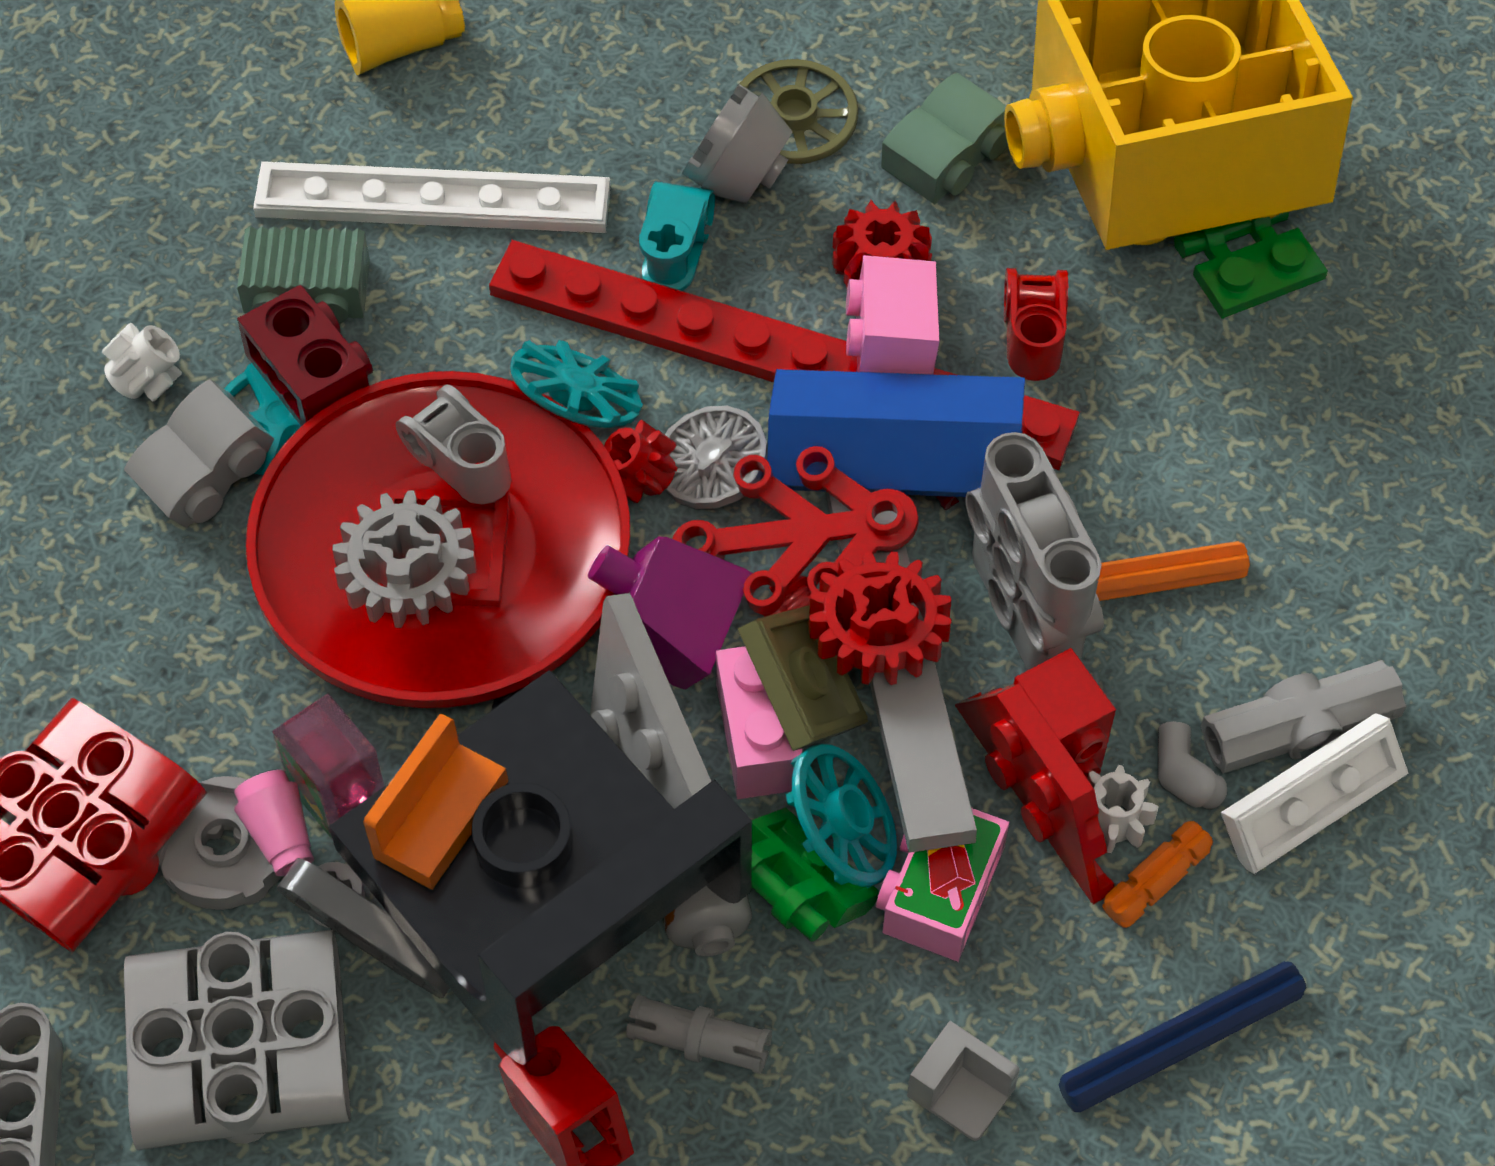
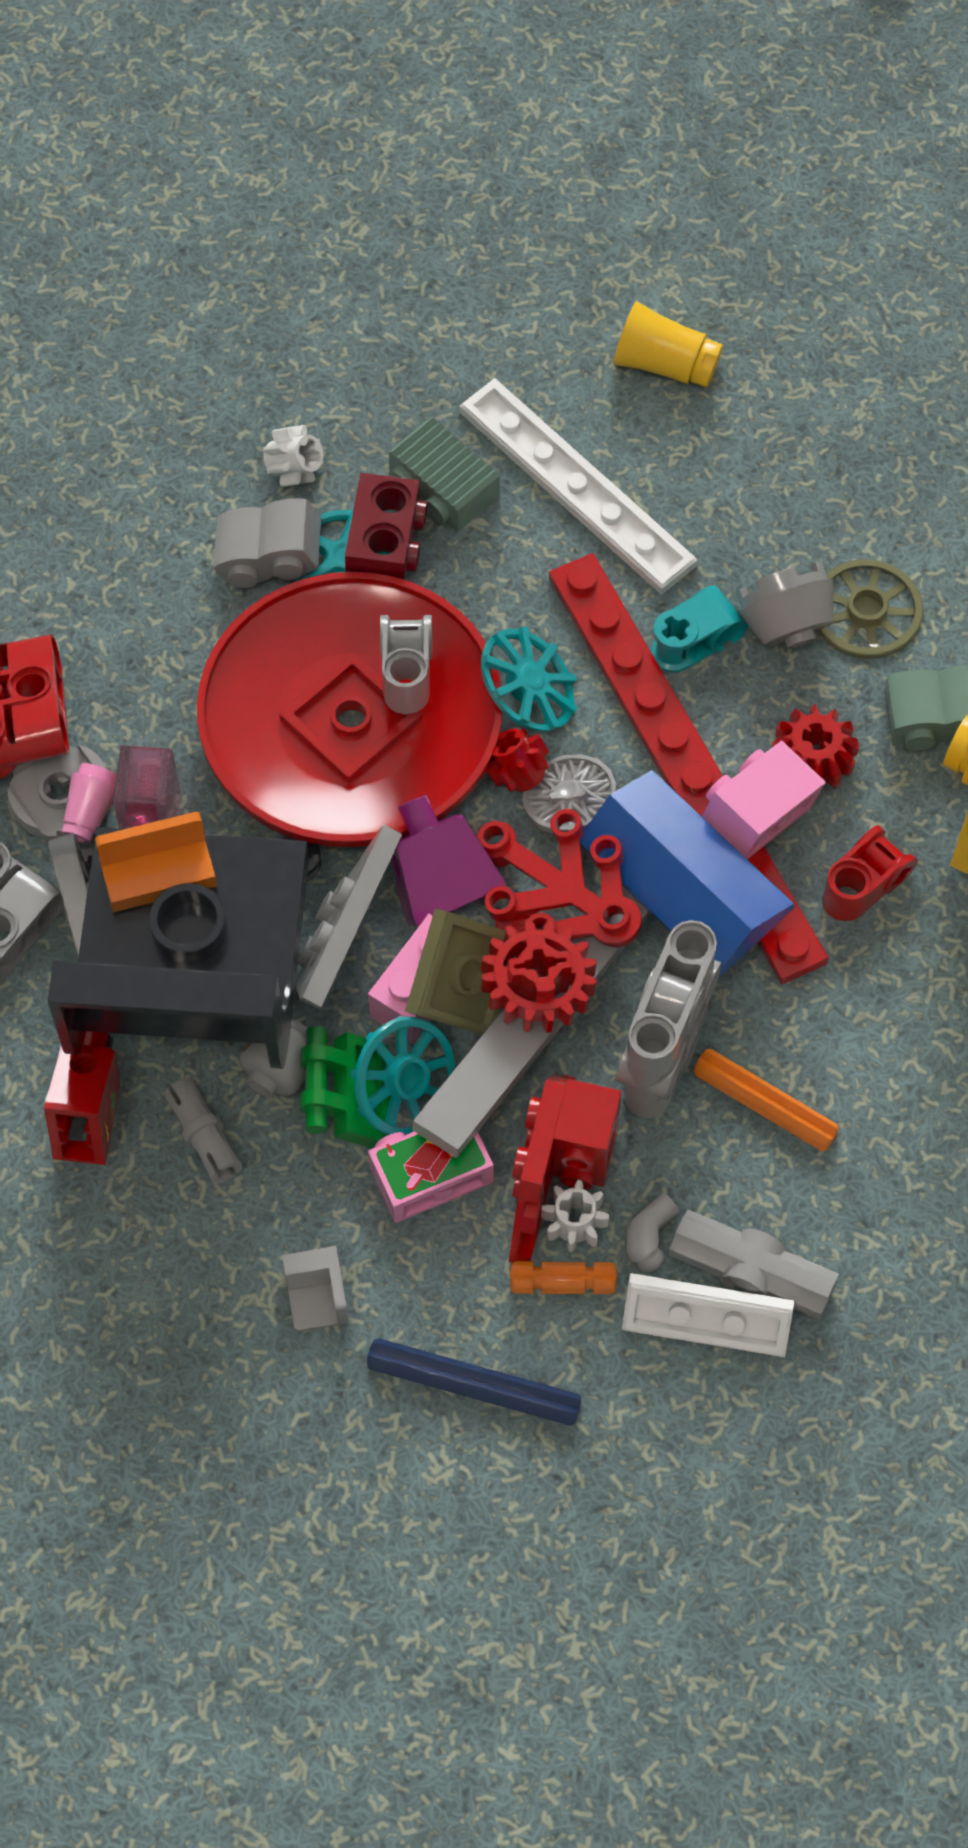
camera: 45 degrees right, 5 degrees up
(405, 554) = (303, 706): light grey gear -> none

